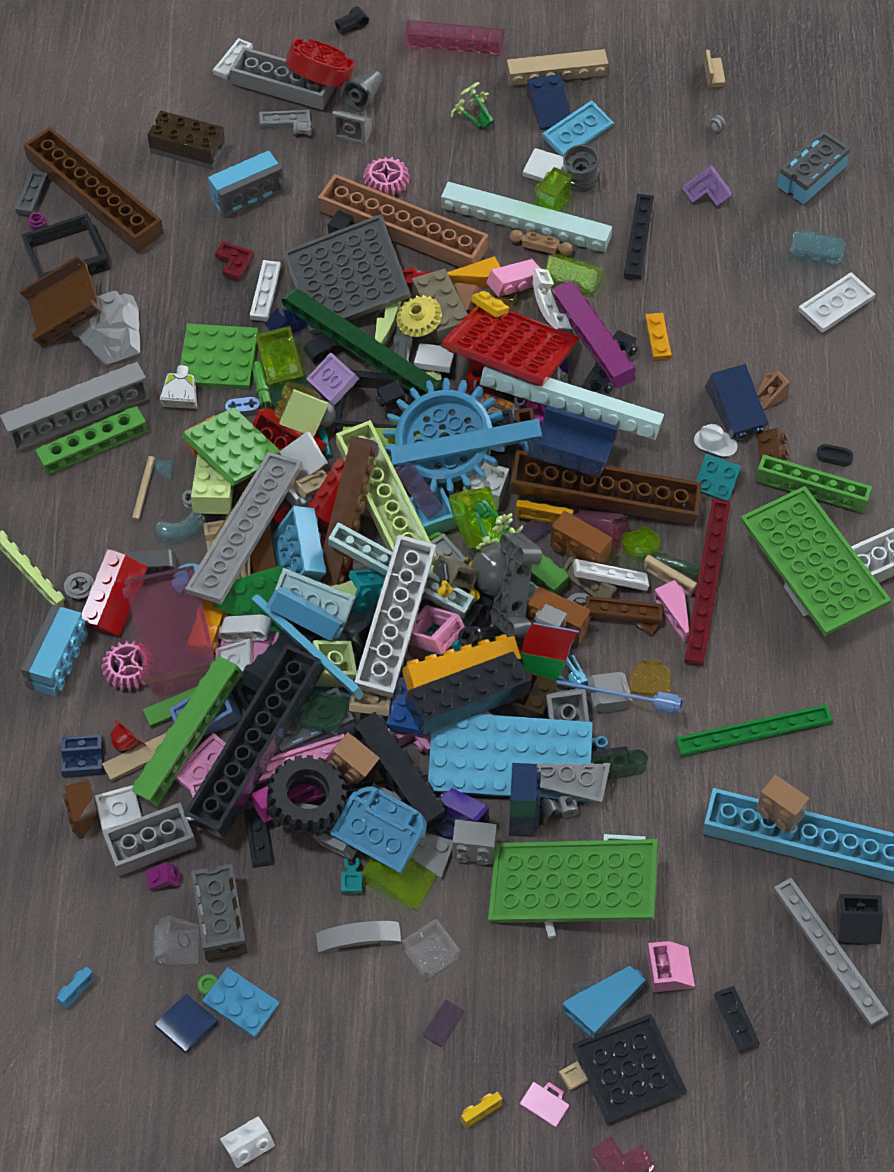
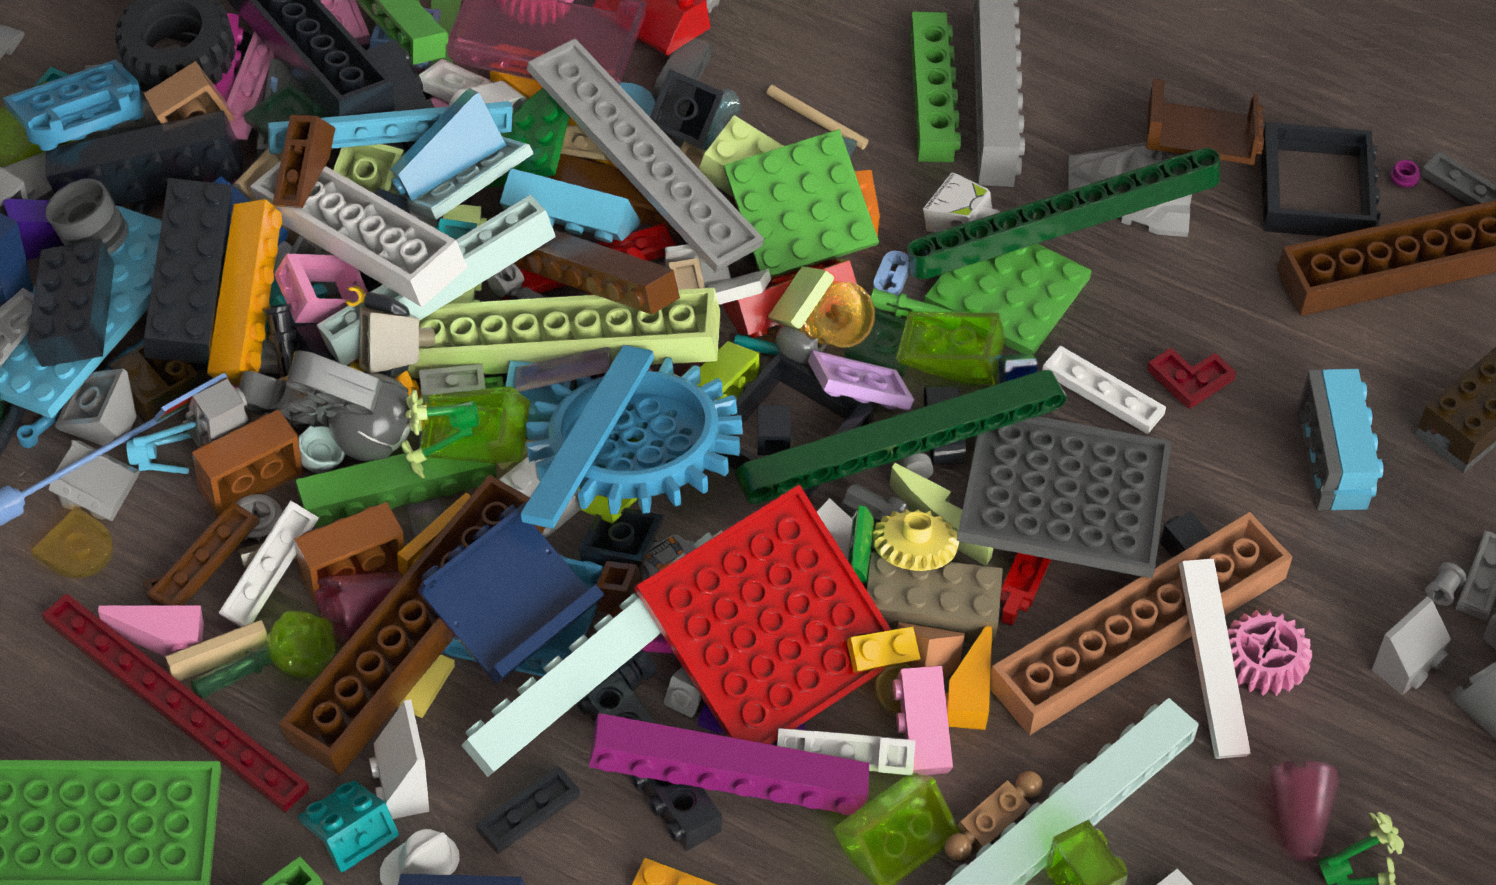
camera: 115 degrees right, 5 degrees down
(171, 339) = (1063, 213): none -> dark green beam
(186, 537) = (686, 108): none -> black slope
(372, 657) = (303, 159): none -> reddish brown slope
(409, 186) = (1214, 659): none -> white tile
(435, 333) = (861, 543): none -> green slope
(462, 135) = (1304, 805): none -> clear pink cone
(464, 755) = (87, 213): none -> dark grey wheel
(523, 741) = (71, 303): none -> black brick
(672, 413) = (527, 810): none -> black plate
(682, 454) = (401, 765): none -> white slope

